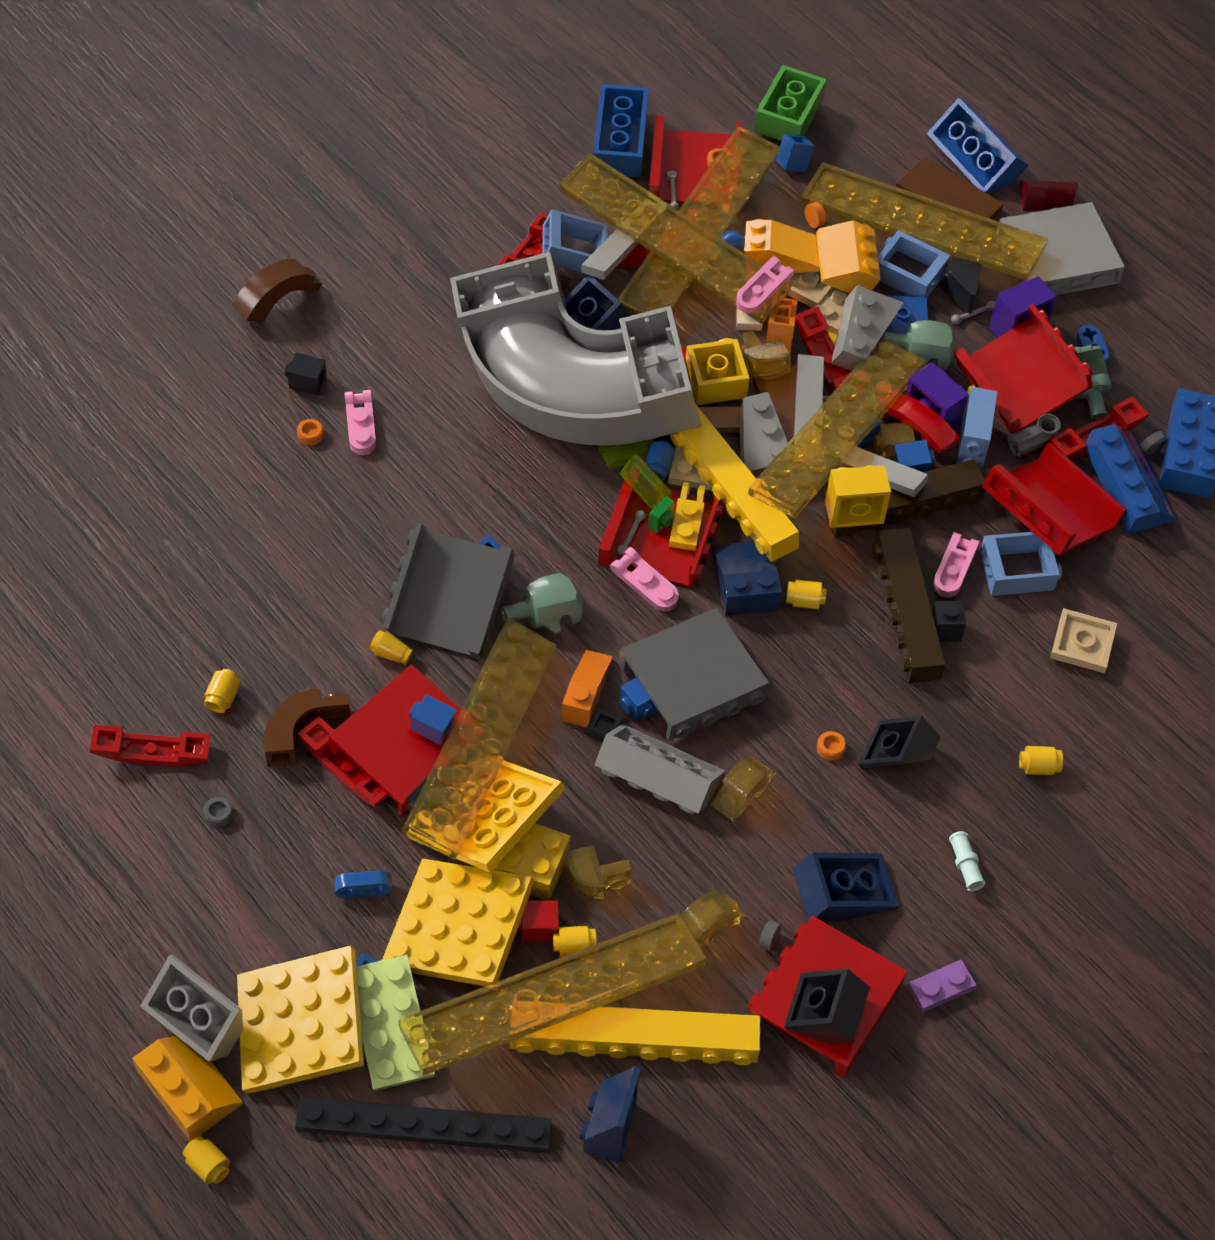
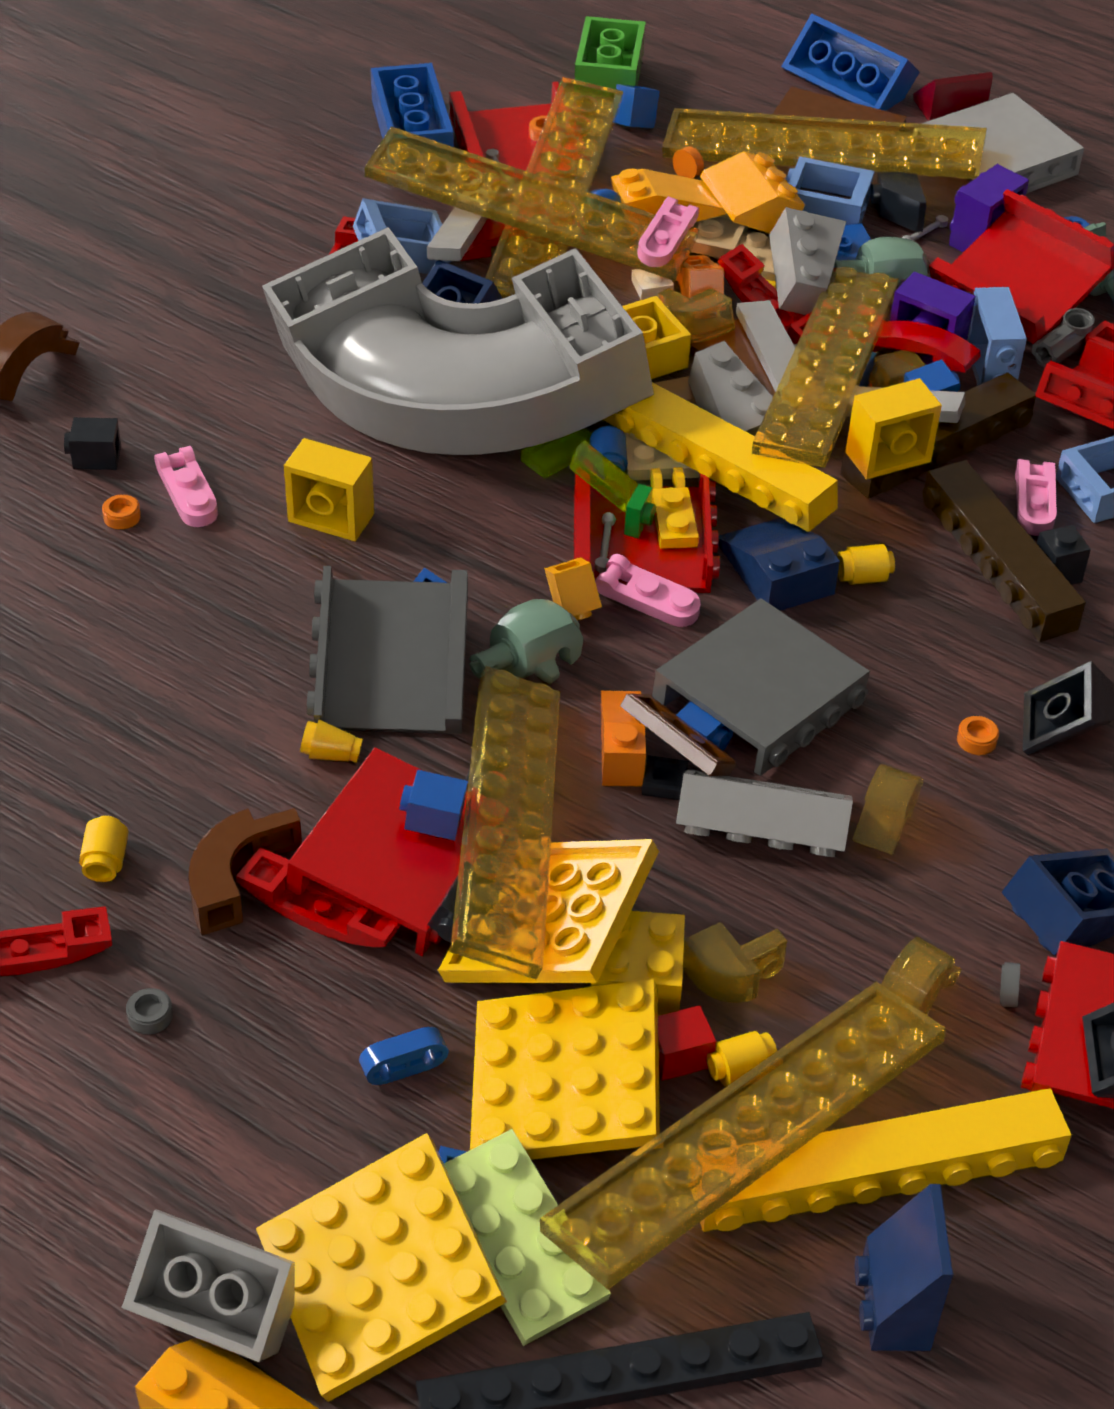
camera: 15 degrees left, 10 degrees down
(451, 451) = (329, 489): none -> yellow brick
(591, 569) = (574, 587): none -> light orange brick
(617, 702) = (678, 734): none -> tile

